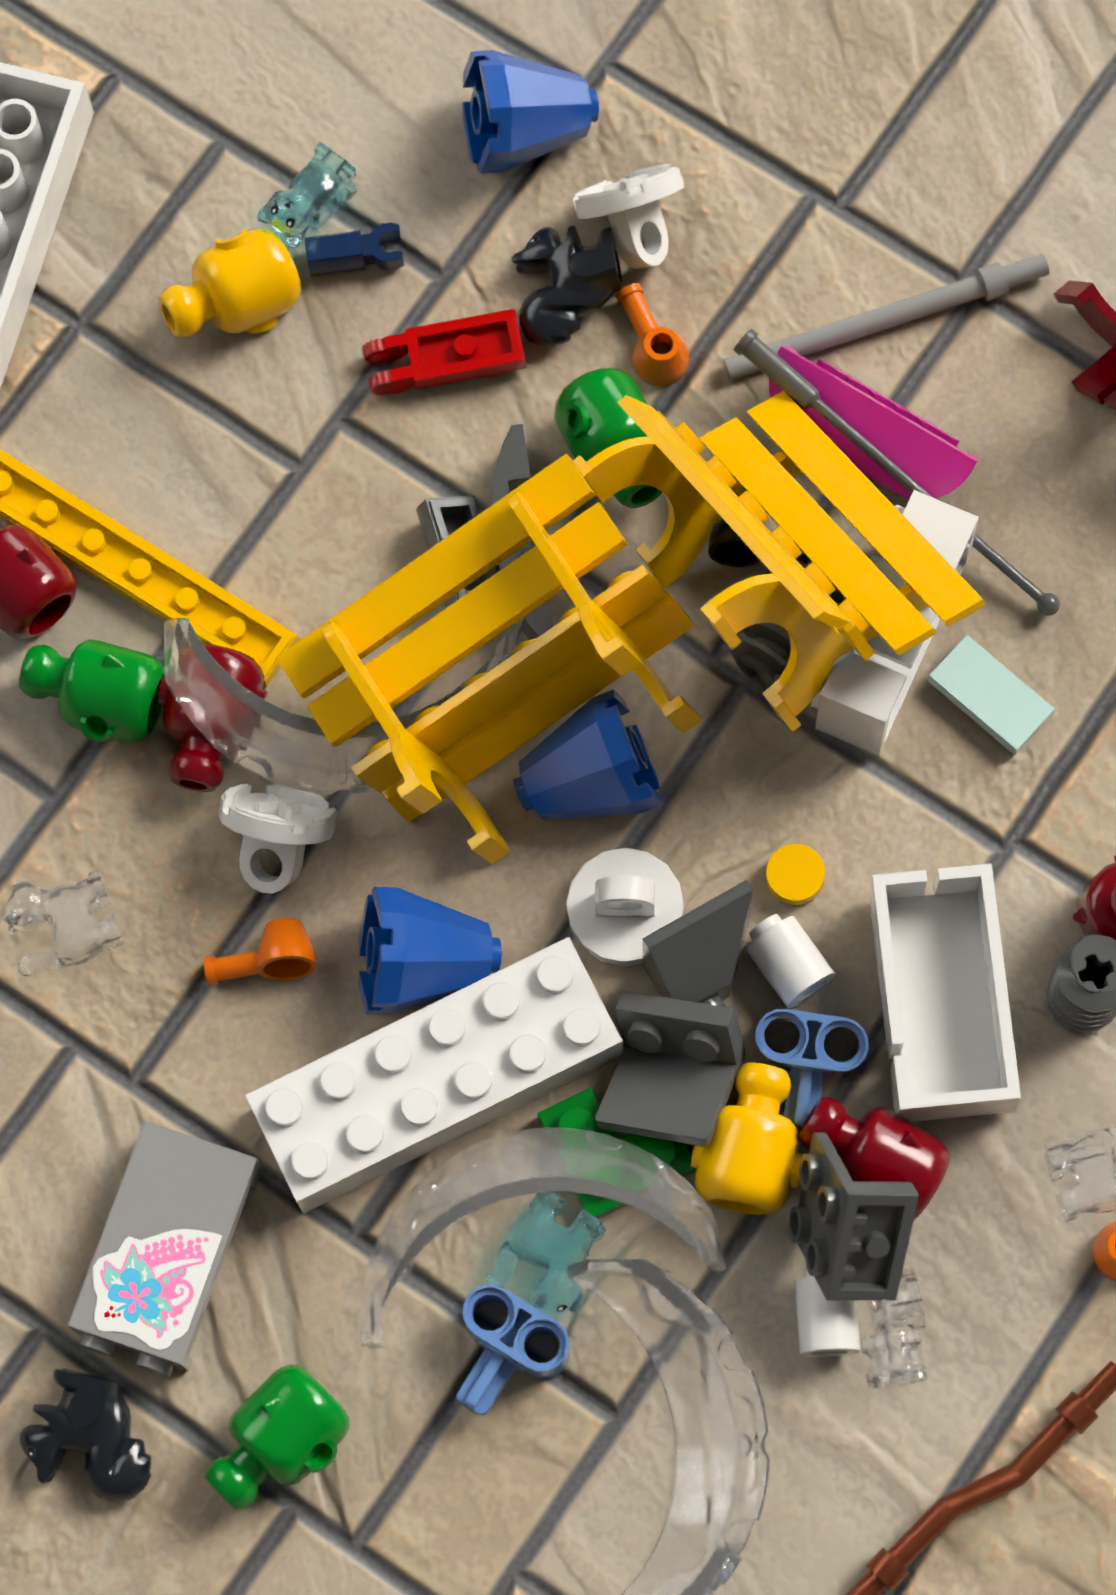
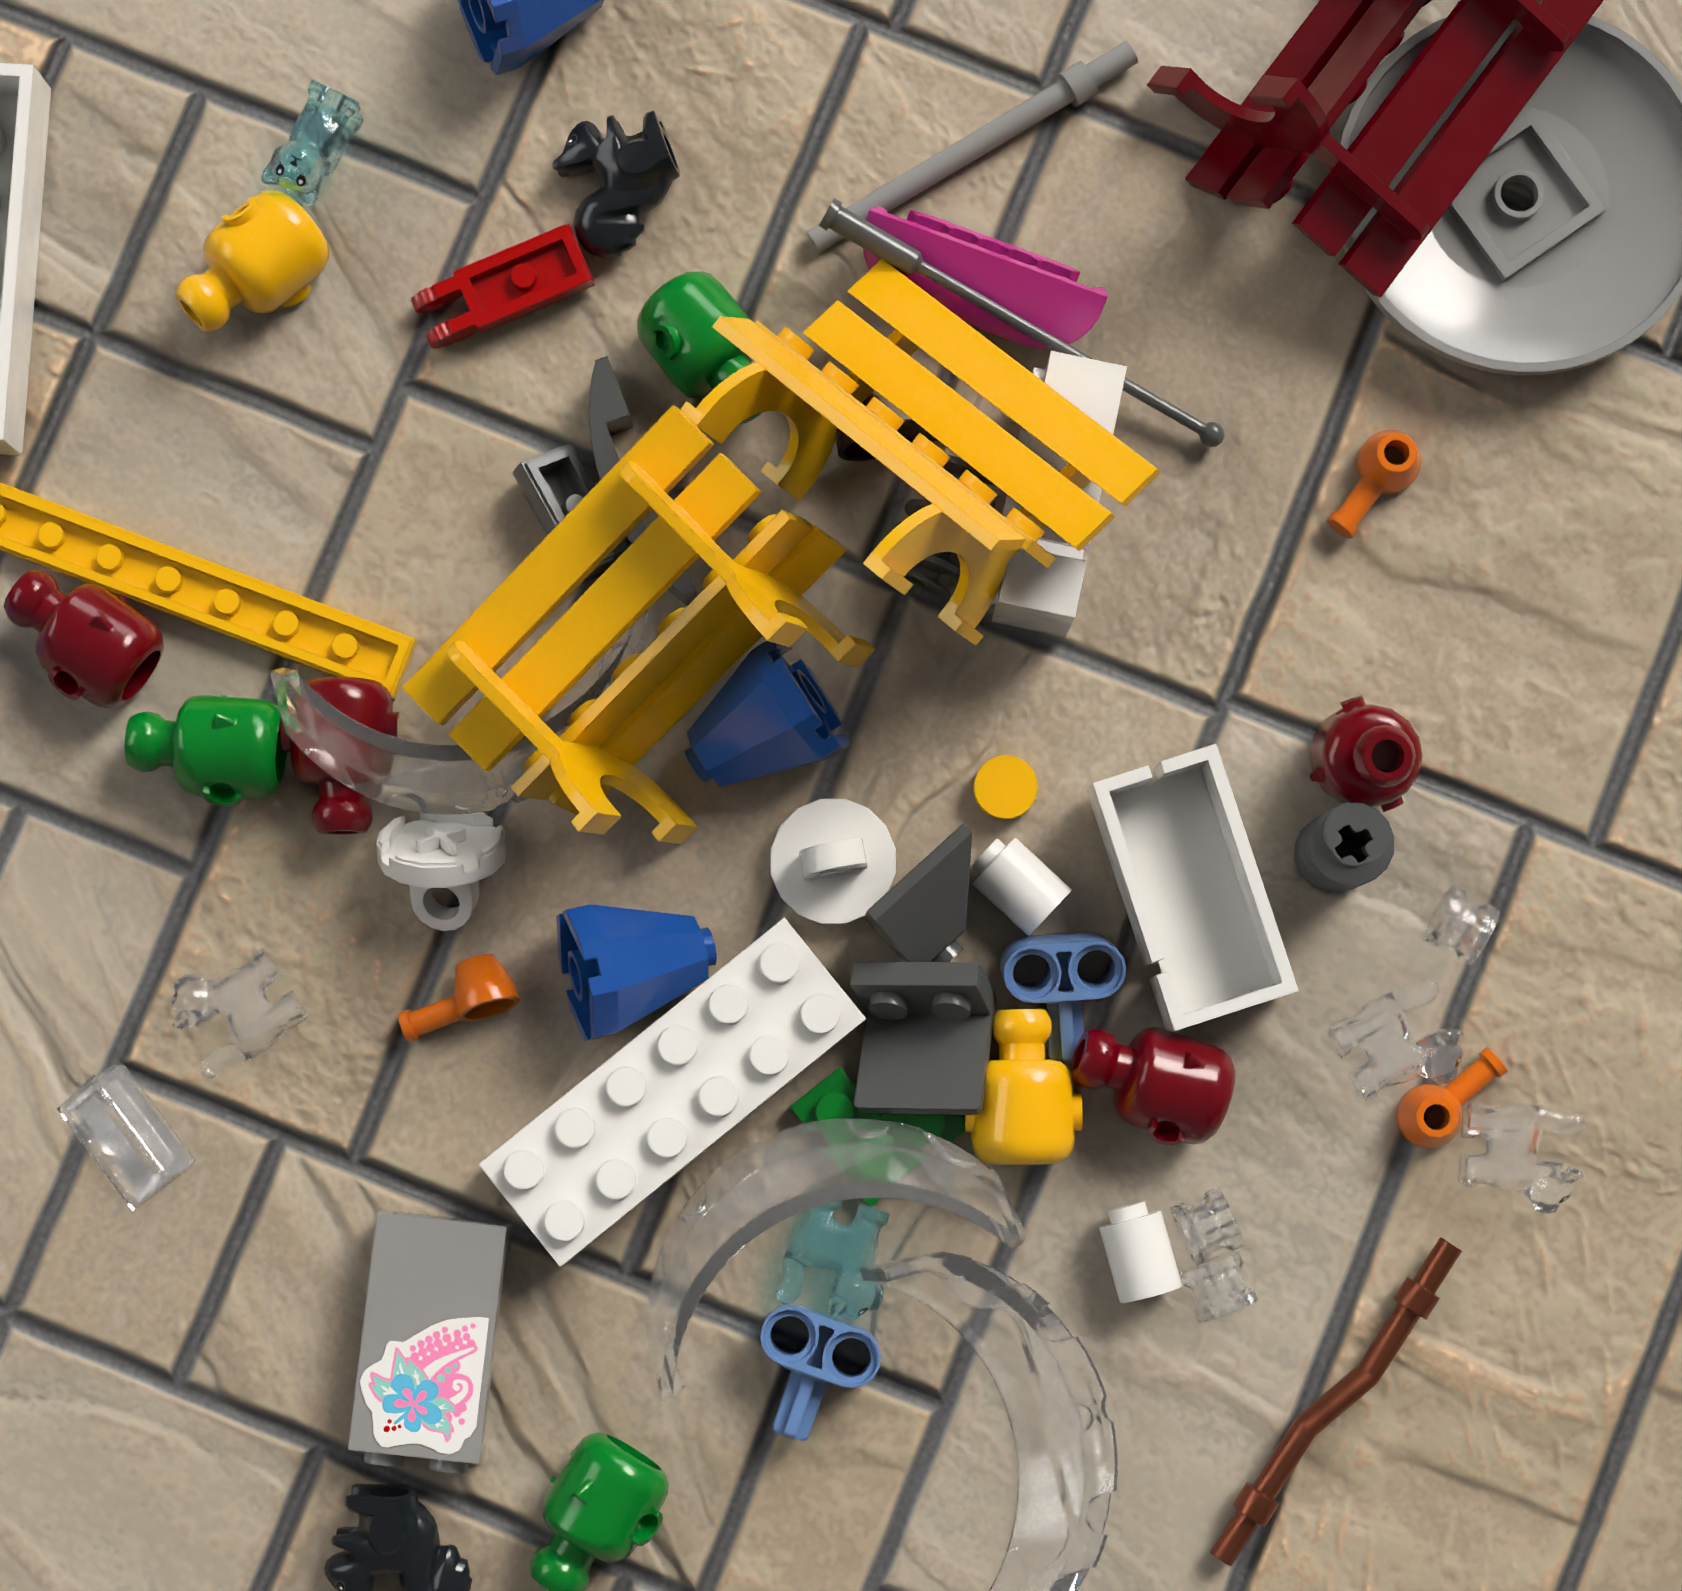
camera: 20 degrees left, 10 degrees up
(353, 251) = (374, 191): dark blue bar -> none
(633, 208) = (672, 83): white tile -> none
(653, 367) = (727, 256): orange bar -> none
(849, 1229) = (1152, 1181): dark grey bracket -> none
(991, 694) = (1171, 547): light aqua tile -> none

